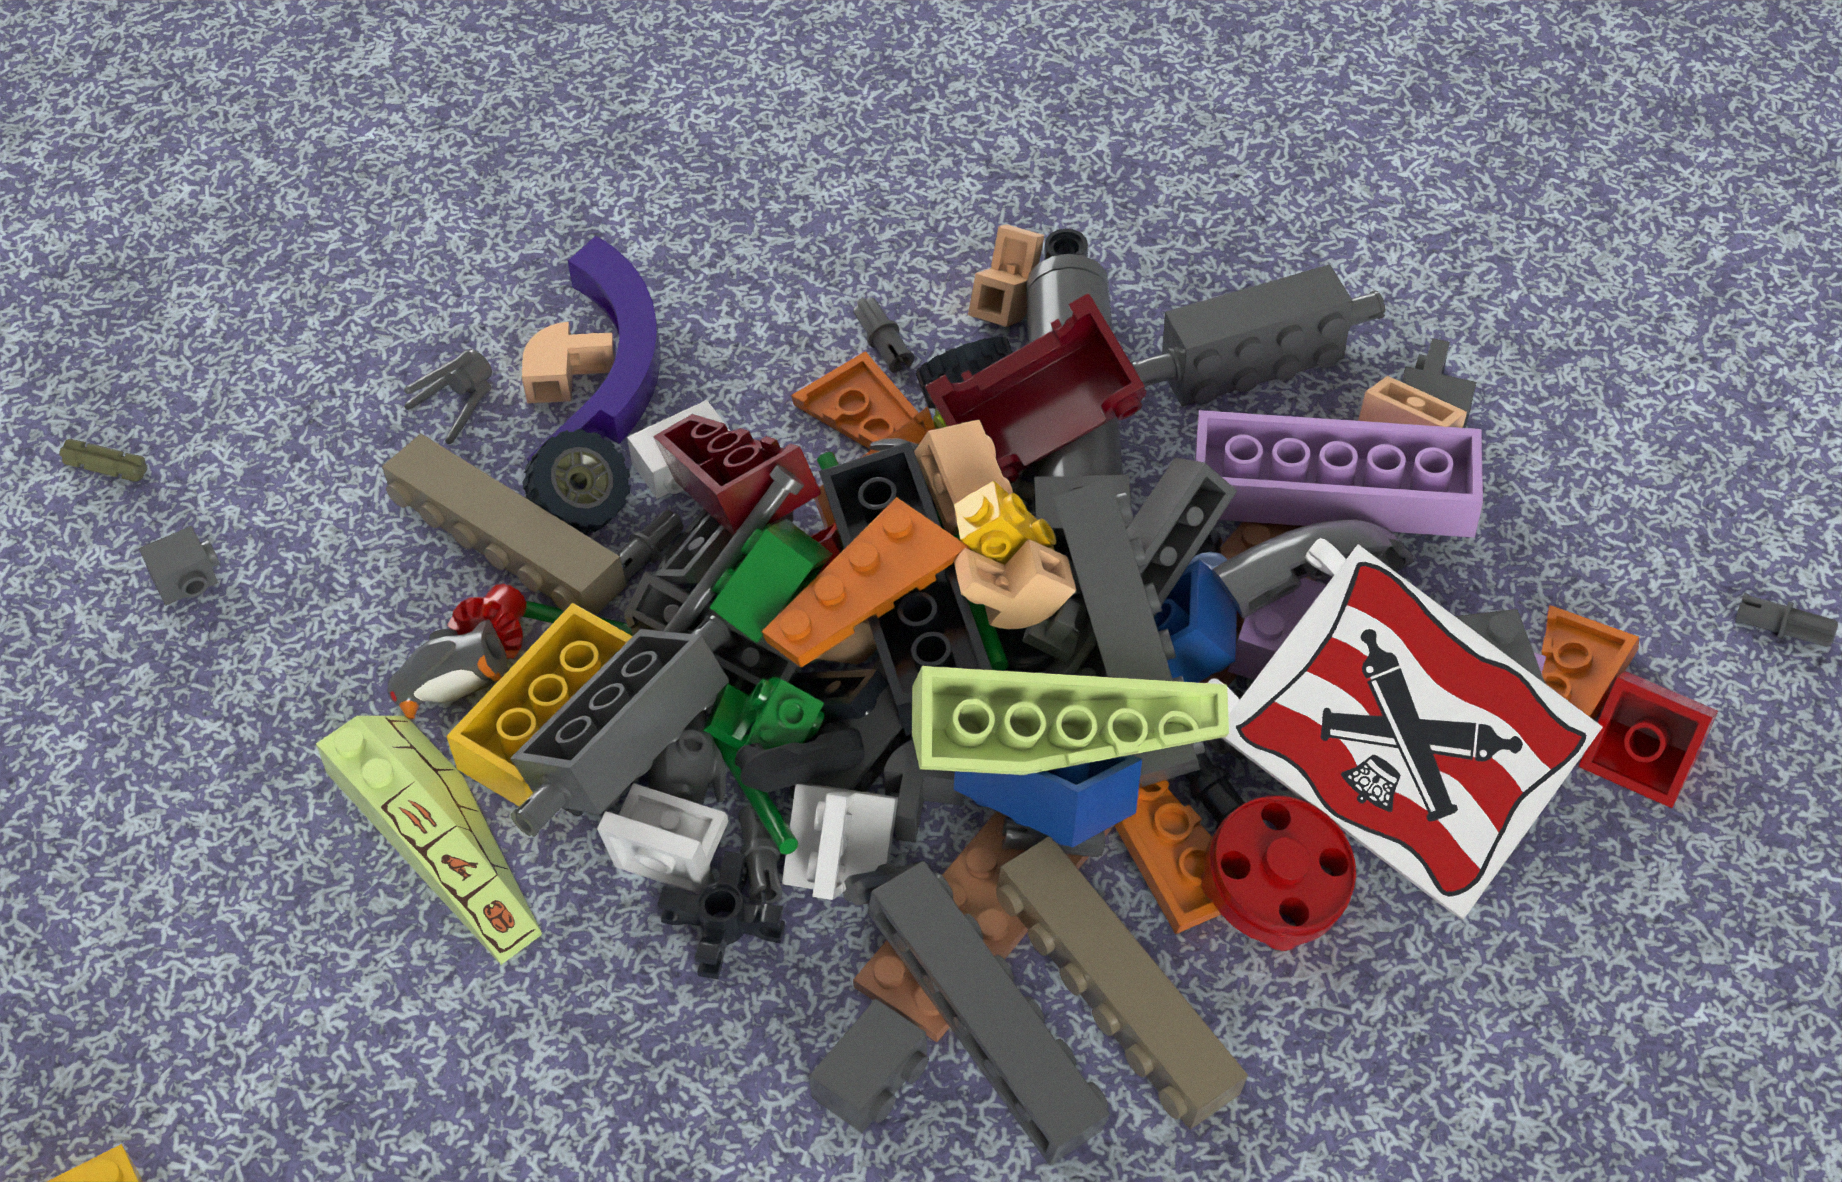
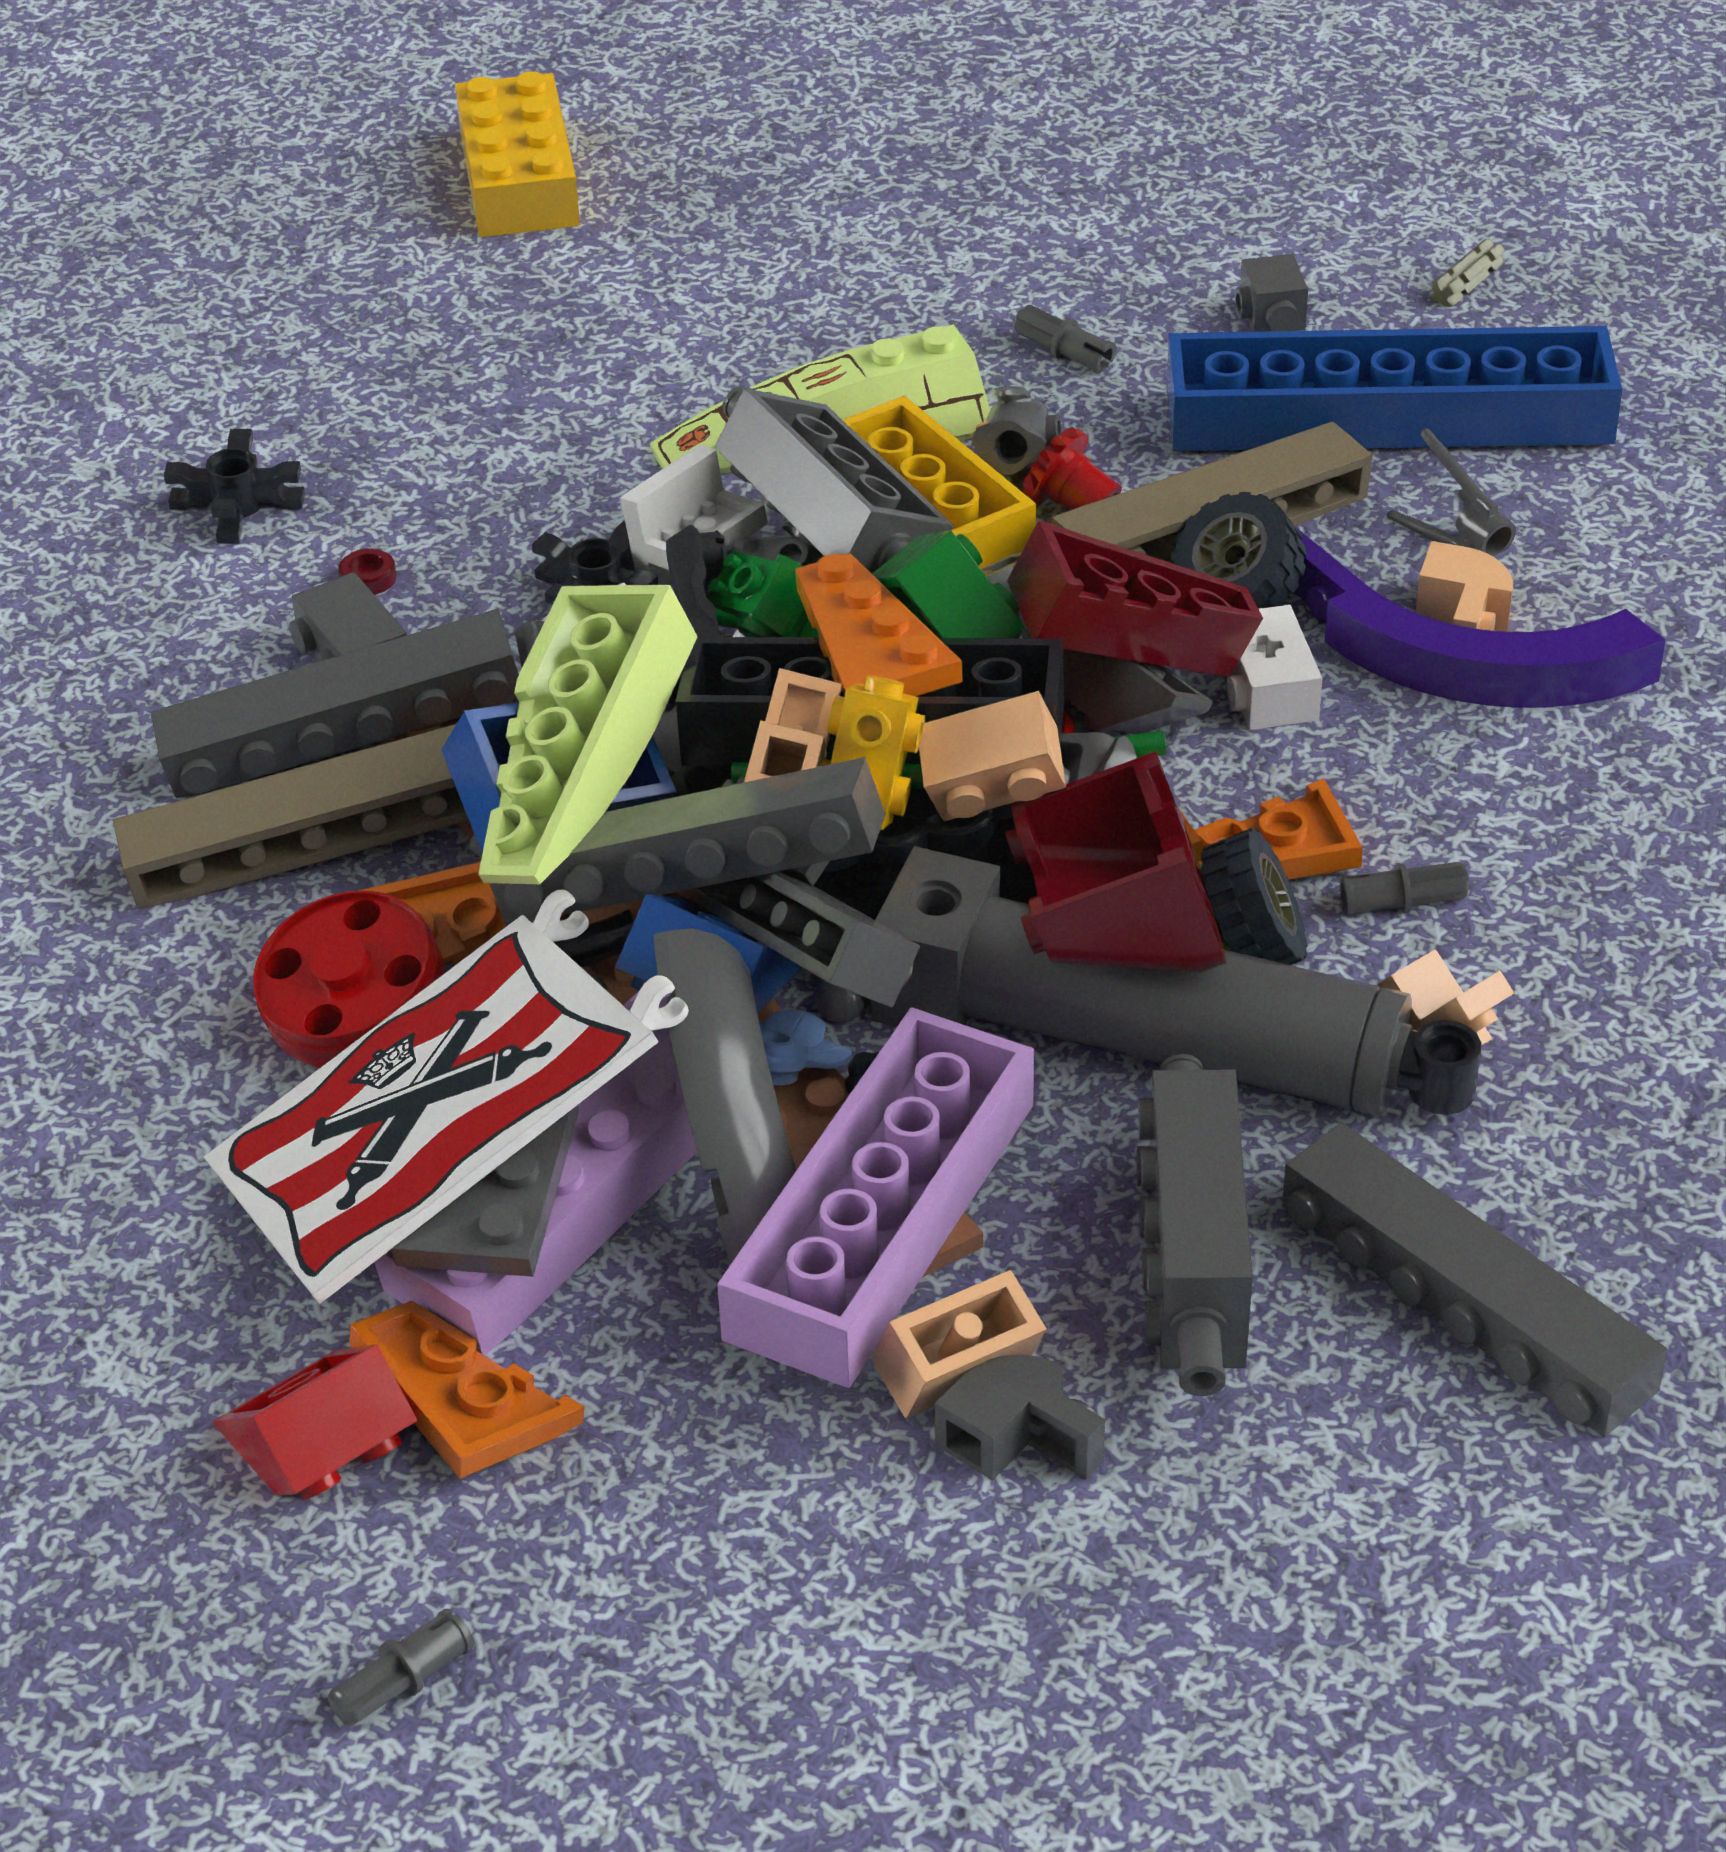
camera: 110 degrees right, 10 degrees down
(269, 697) = (1064, 338): none -> dark grey axle
(316, 456) = (1394, 383): none -> blue brick
(760, 1110) = (372, 566): none -> dark red tile
(783, 484) = (1026, 574): dark grey bar -> none
(1216, 225) = (1473, 1280): none -> dark grey brick

